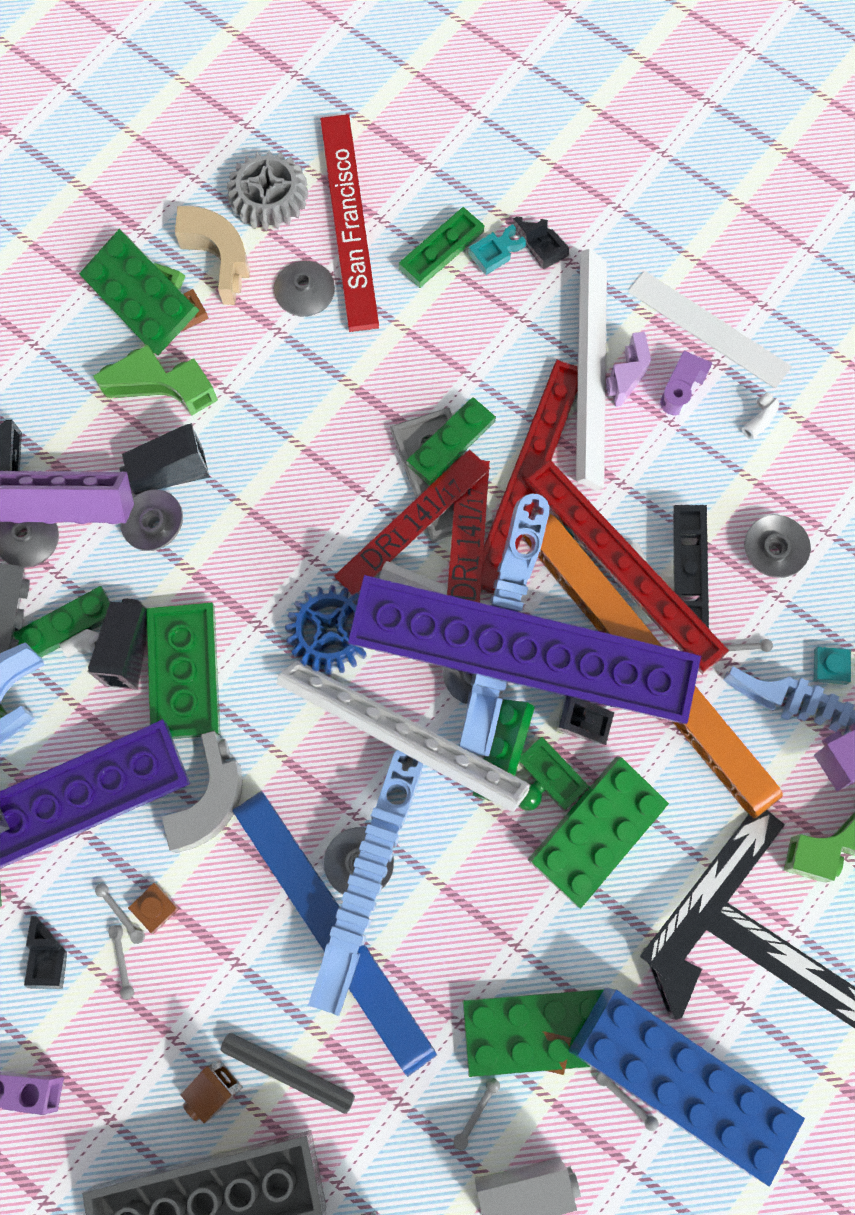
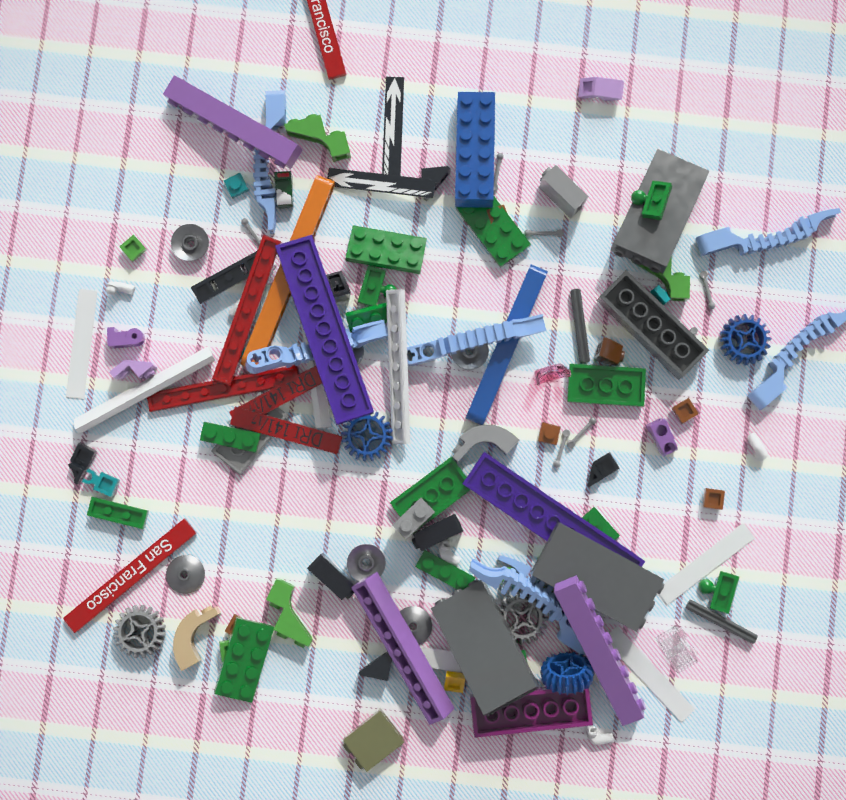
camera: 125 degrees left, 10 degrees up
(37, 1161) = (685, 410): none -> dark orange plate
(157, 610) = (413, 518): none -> light grey brick
(163, 1053) = (606, 385): none -> green plate
(246, 953) = (562, 372): none -> clear pink helmet
(785, 732) = (284, 189): none -> dark green leg
(813, 465) = (133, 248): none -> bright green plate

